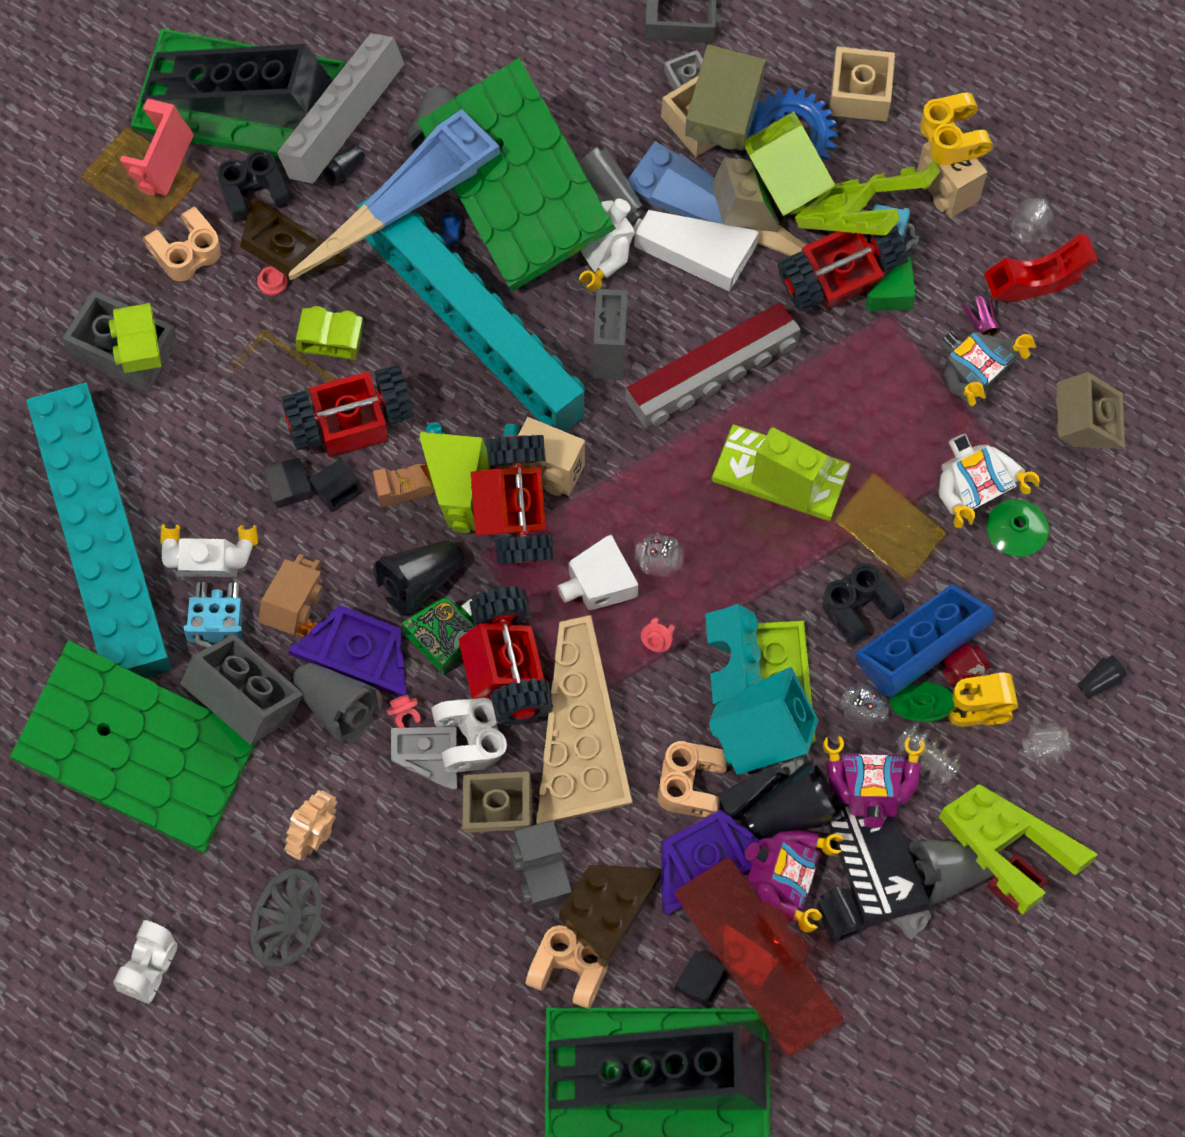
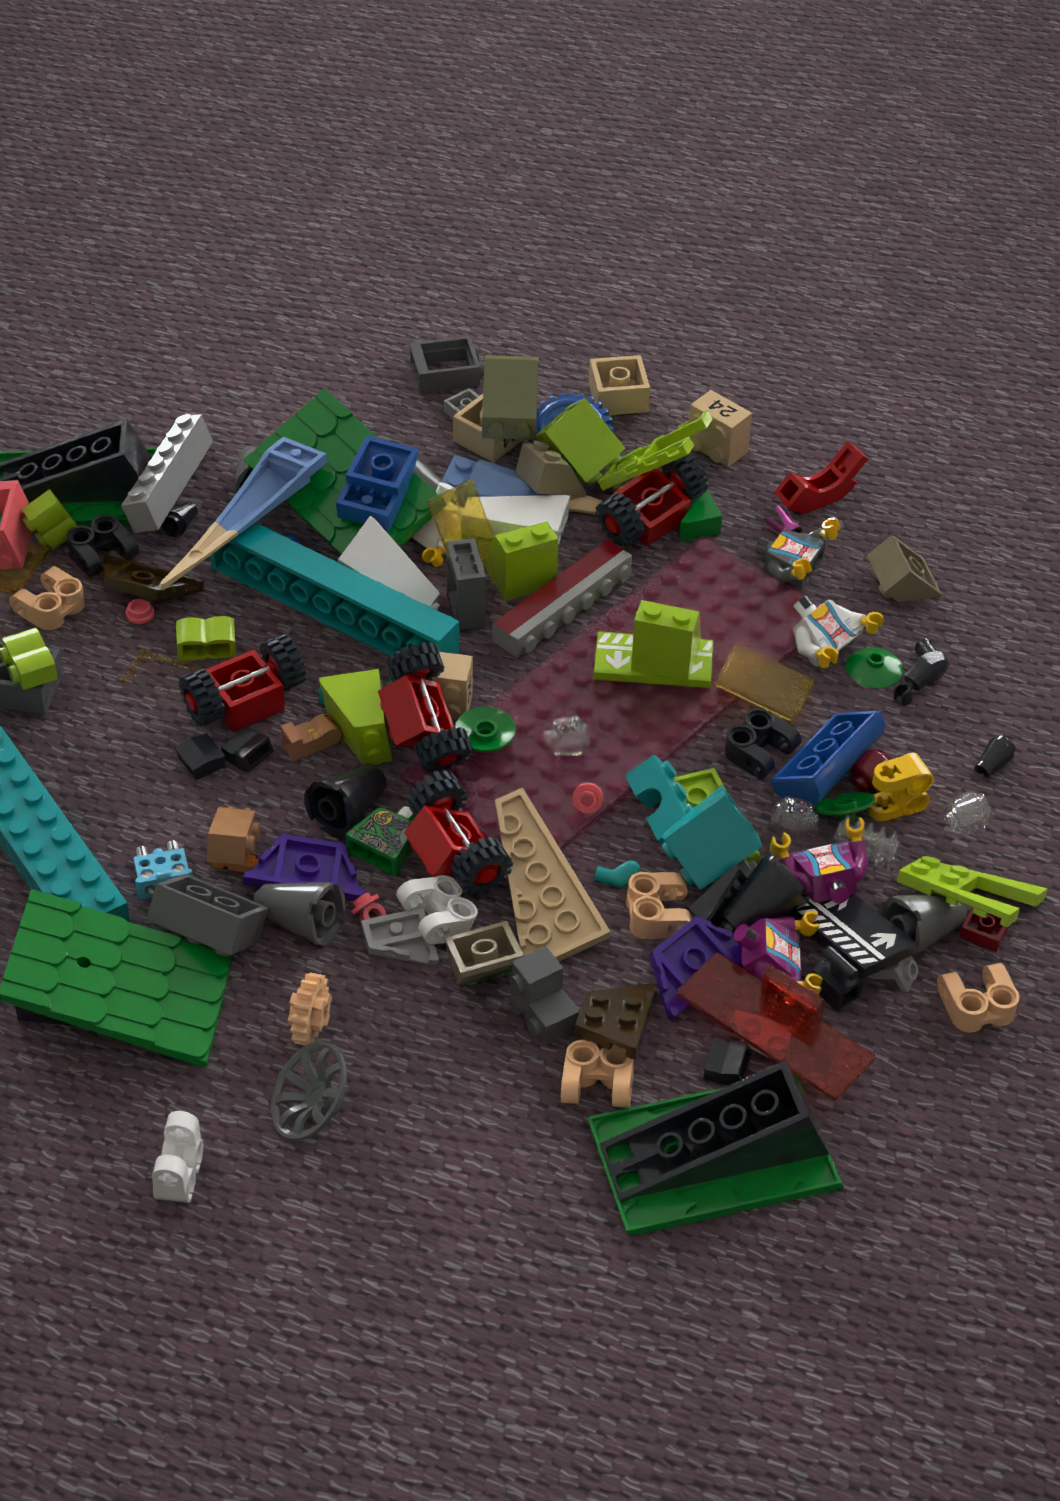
camera: 15 degrees left, 20 degrees down
(203, 147) = (49, 520): none -> lime brick
(206, 556) = (138, 820): white torso -> none
(530, 294) = (381, 559): none -> white slope
(546, 191) = (377, 482): none -> blue slope
(577, 513) = (487, 728): none -> green dish
(599, 577) = (520, 762): white torso -> none
(630, 253) = (461, 516): none -> clear yellow piece
(666, 731) = (619, 876): none -> teal arm
(682, 314) = (523, 560): none -> lime slope
(962, 145) = (705, 383): yellow piece -> none
(1002, 968) = (972, 1008): none -> light nougat piece
(1031, 220) = (798, 451): clear head -> none
(1067, 550) = (927, 668): none -> black arm

